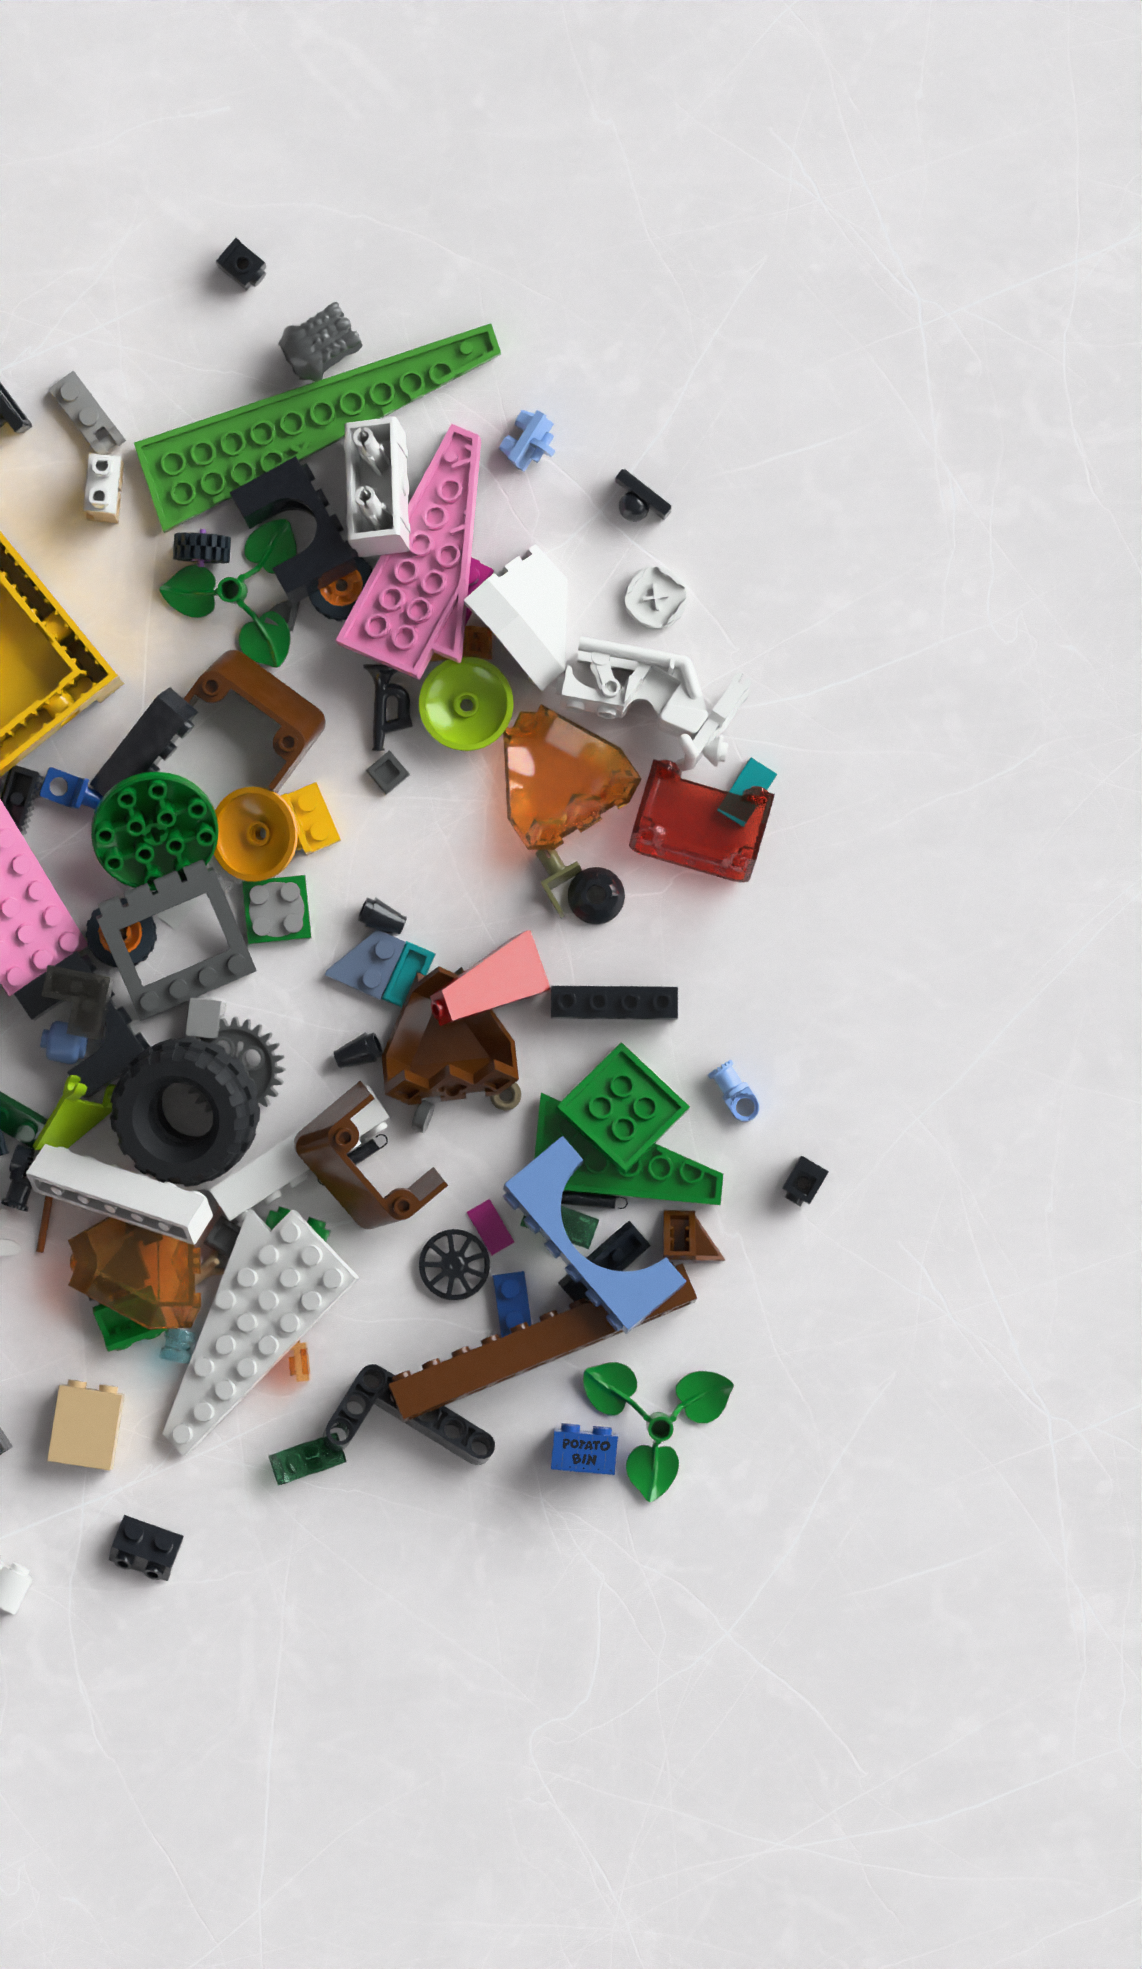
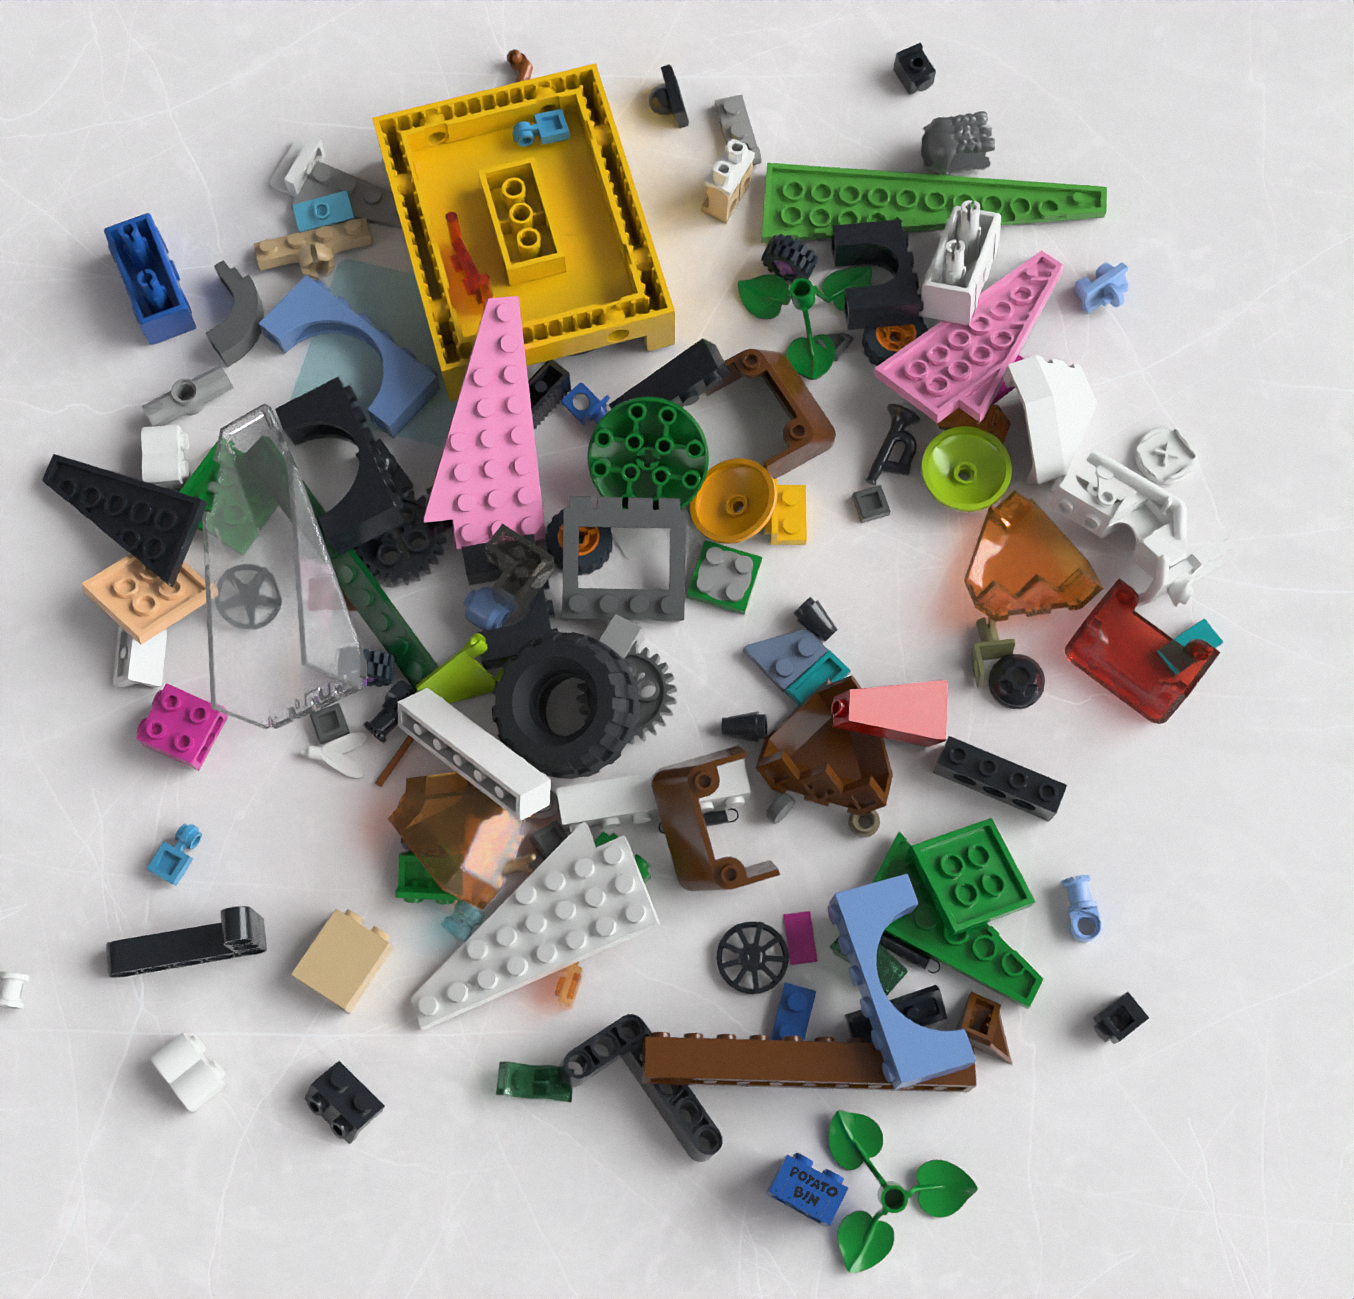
camera: 20 degrees right, 15 degrees down
(639, 499) = (1184, 368): black tile -> none

